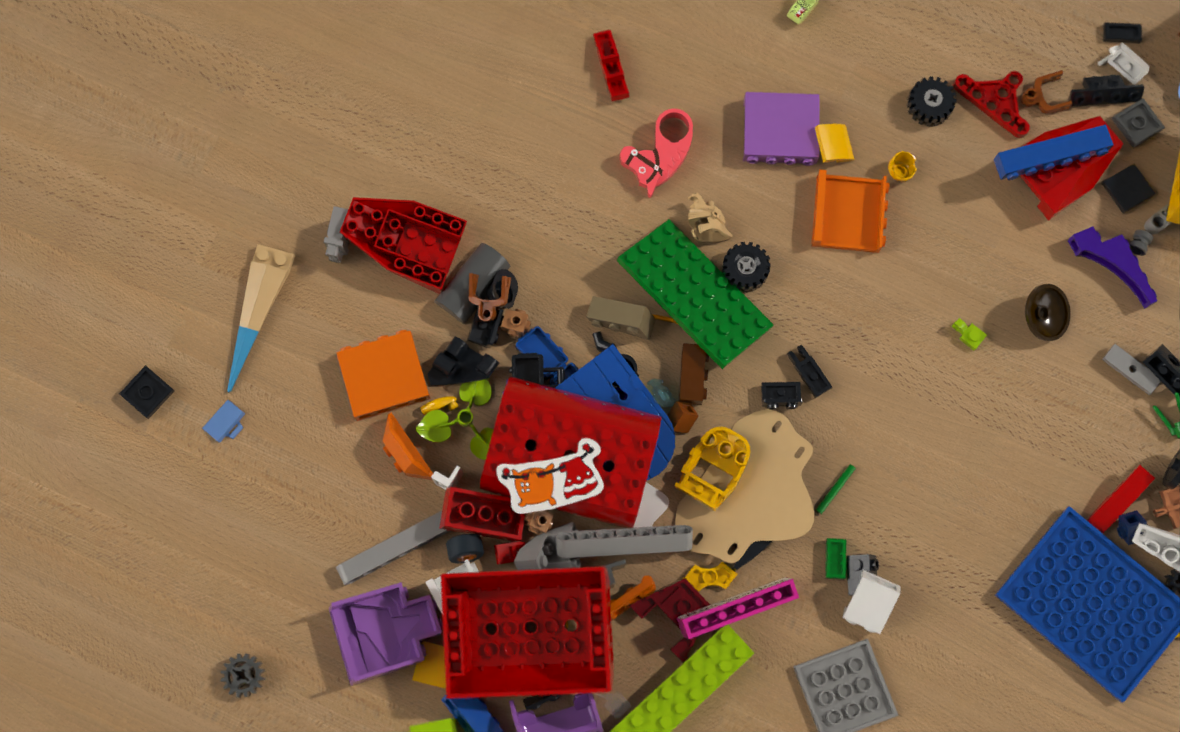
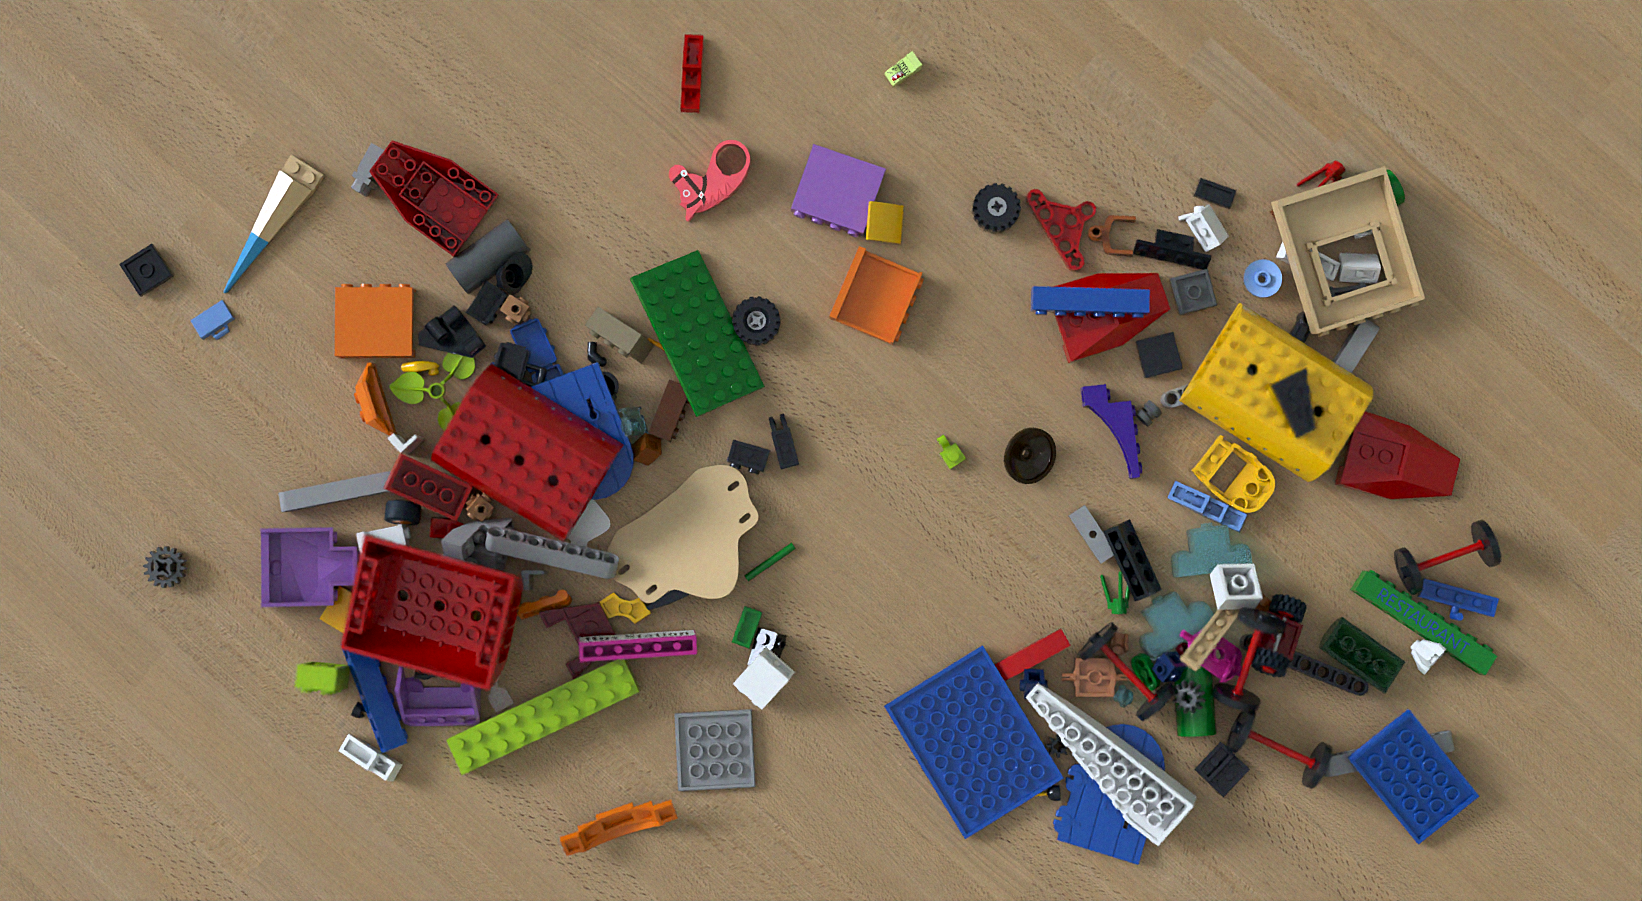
camera: 10 degrees right, 10 degrees up
(488, 305) = (490, 289): dark orange piece -> none
(553, 481) = (496, 480): sticker -> none
(707, 221) = (733, 263): tan helmet -> none
(723, 450) = (674, 493): yellow slope -> none
(902, 166) = (943, 266): yellow hair -> none

